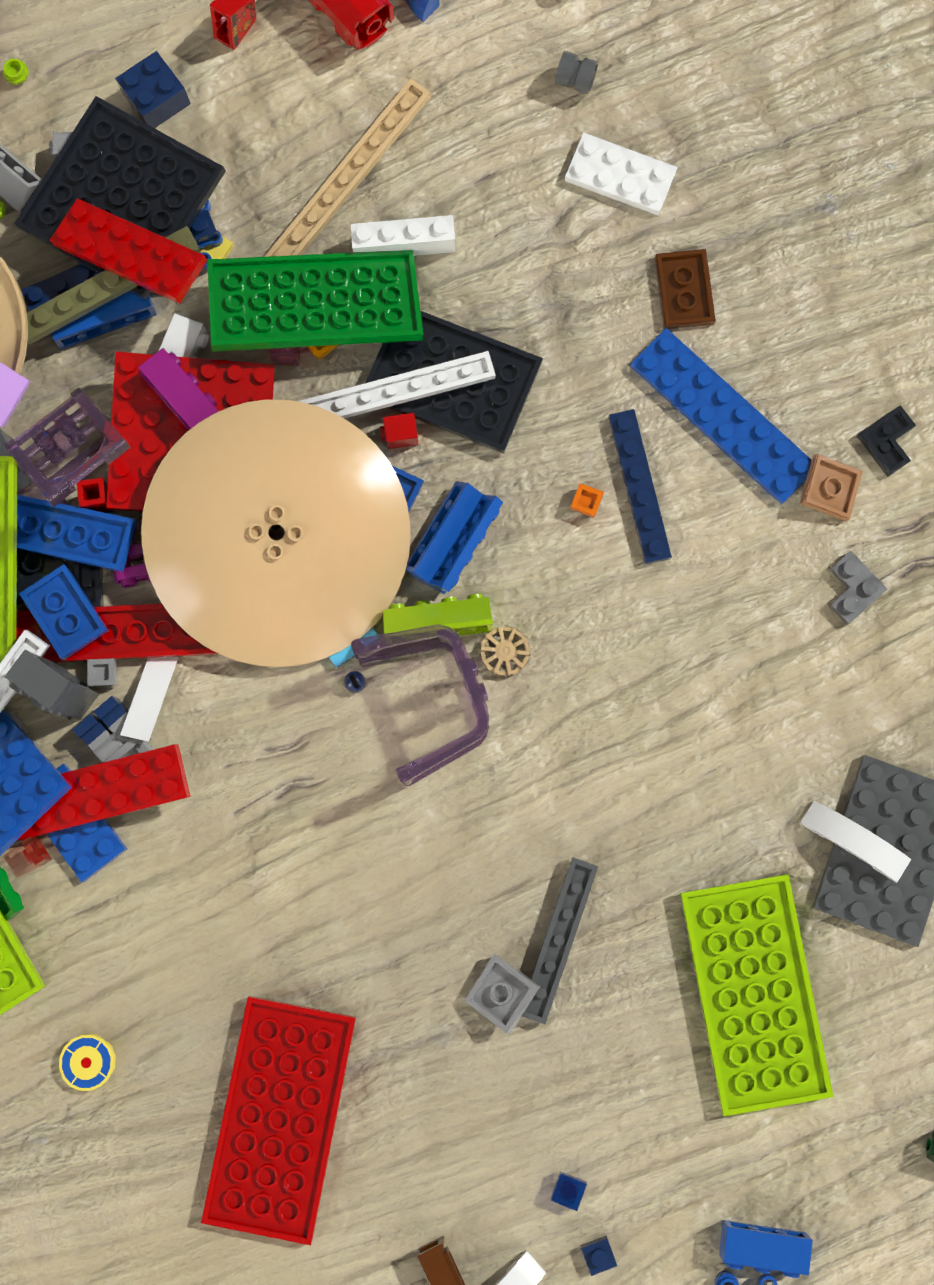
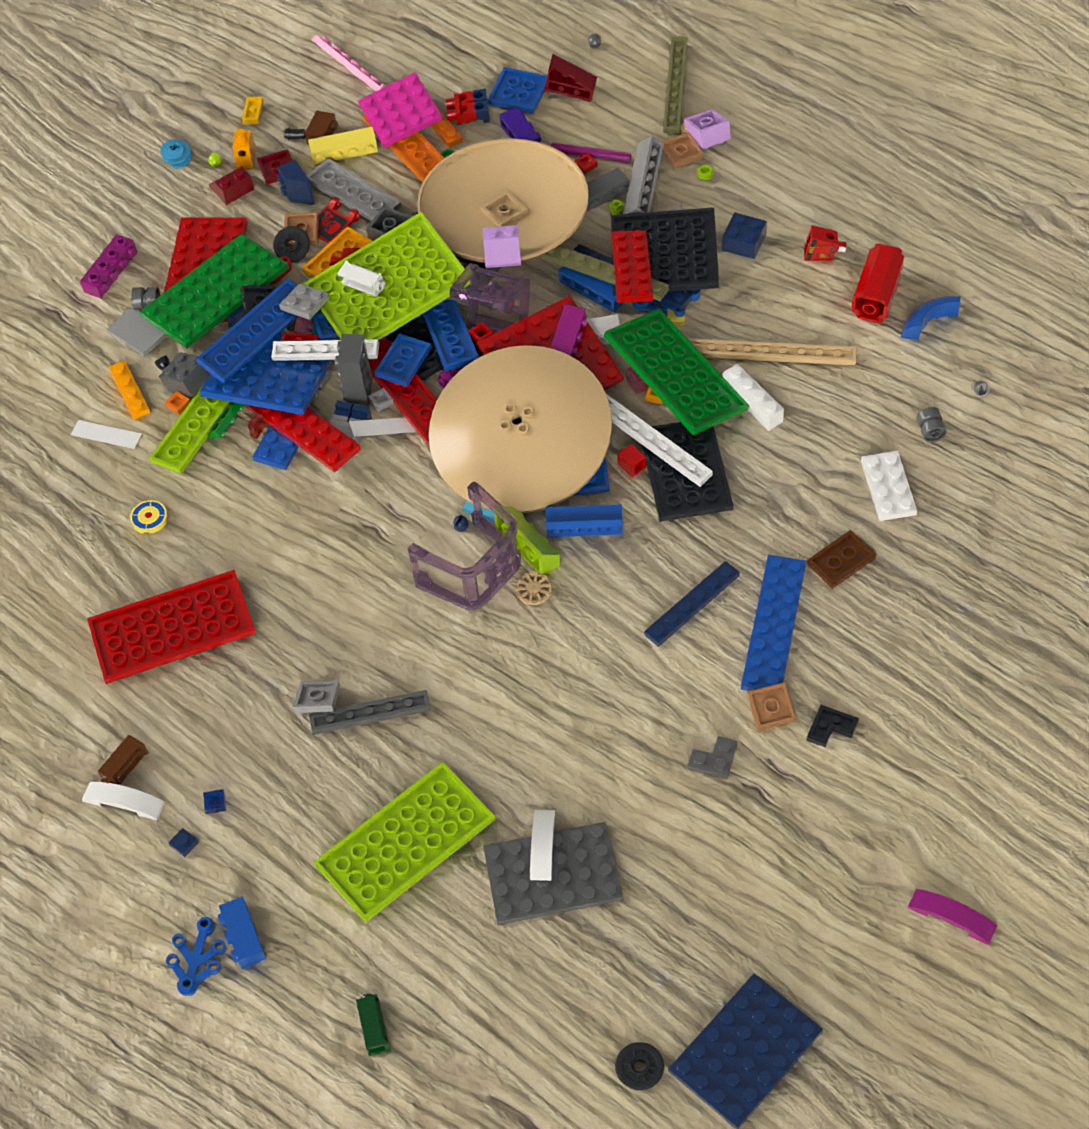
camera: 60 degrees right, 25 degrees down
(587, 500) = (660, 578): orange plate -> none

